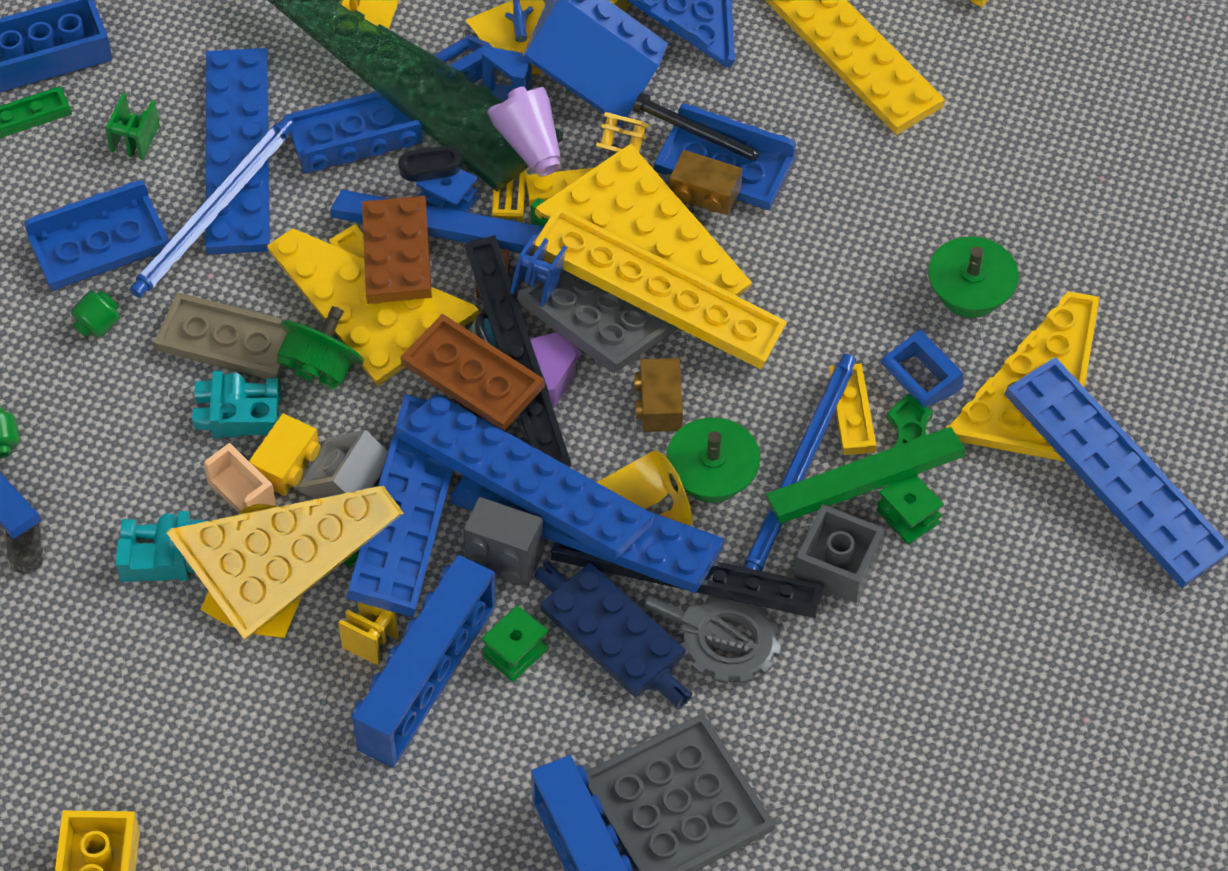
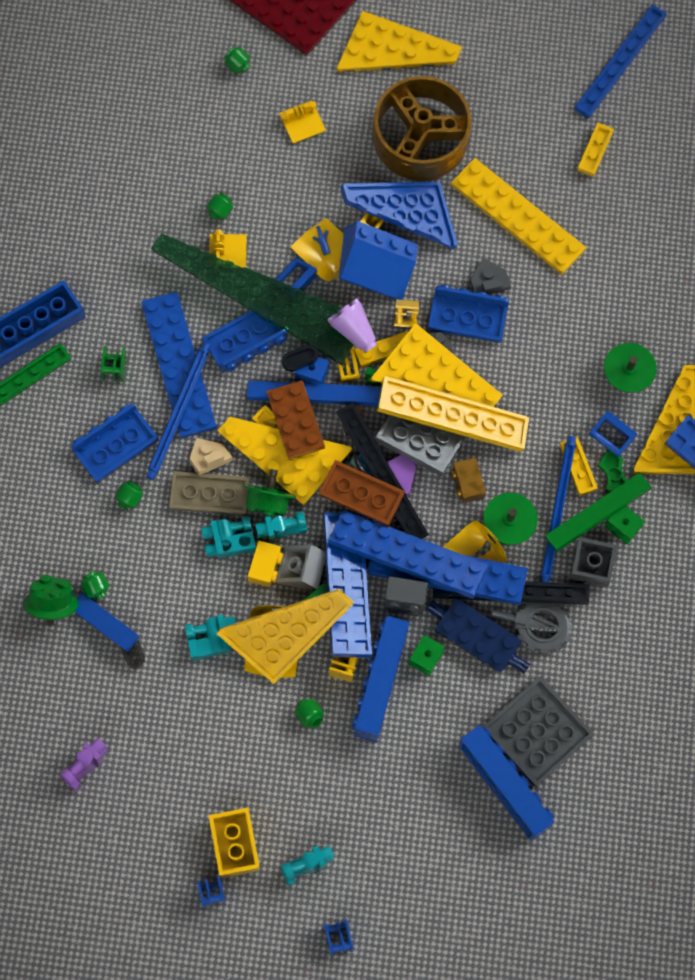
camera: 15 degrees left, 15 degrees up
(237, 479) = (244, 588): light nougat panel -> none
(241, 282) = (208, 456): none -> tan plate
(289, 694) = (309, 713): none -> green head
(327, 403) = (281, 527): none -> teal hips
(508, 63) = (332, 288): blue tile -> none
(536, 269) = (383, 422): blue piece -> none
(643, 104) = (447, 299): black bar -> none
(706, 182) = (463, 337): pearl gold brick -> none
(777, 114) = (489, 278): none -> dark grey plate

